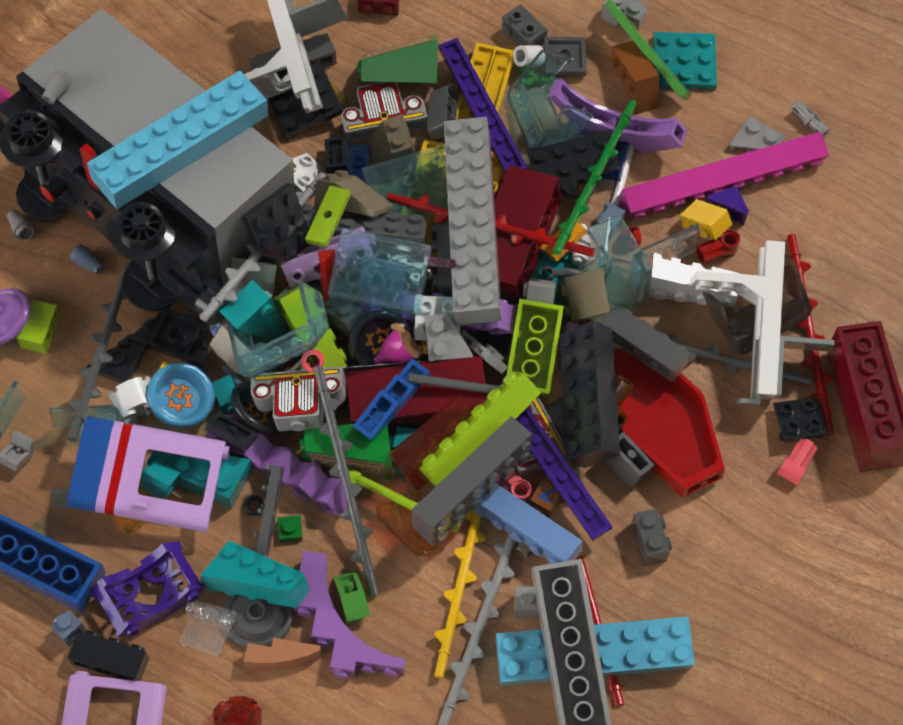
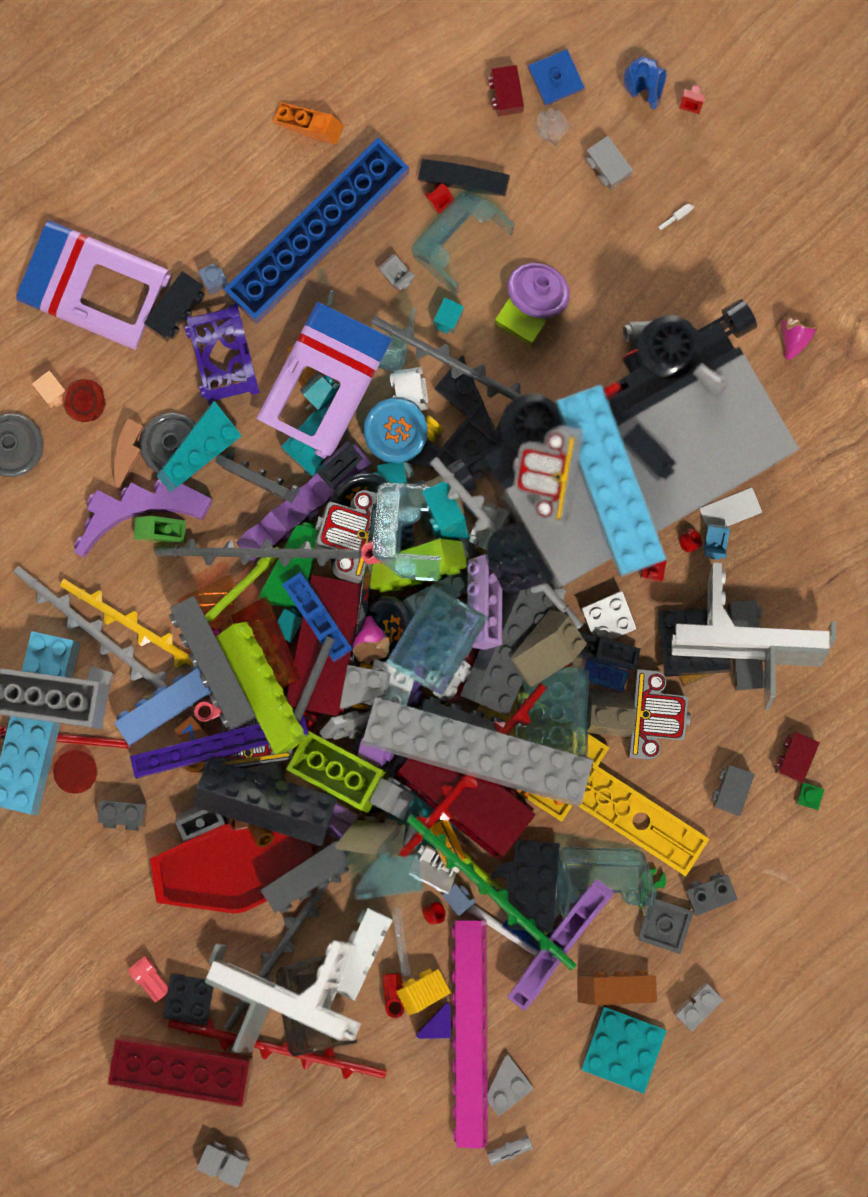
camera: 105 degrees right, 20 degrees up
(49, 391) = (448, 316): none -> teal brick
(86, 258) = (580, 383): sand blue cone -> none
(144, 111) = (648, 453): none -> black brick
(185, 182) = (550, 472): none -> brick
(207, 627) = (172, 397): clear hinge -> none
(253, 498) = (273, 464): black piece -> none
(290, 528) = (243, 496): green plate -> none
(326, 263) = (466, 595): red slope -> none
(328, 216) = (531, 621): lime tile -> none
(402, 63) = (700, 750): green slope -> none
(424, 27) = (732, 790): none -> dark grey brick
(441, 108) = (633, 775): dark grey beam -> none
(442, 262) = (428, 708): clear pink bar -> none
(480, 103) = (623, 815): dark purple plate -> none
(525, 54) = (673, 886): white brick -> none
(626, 599) = (75, 771): none -> clear red tile
(648, 51) = (635, 1009): bright green tile -> none

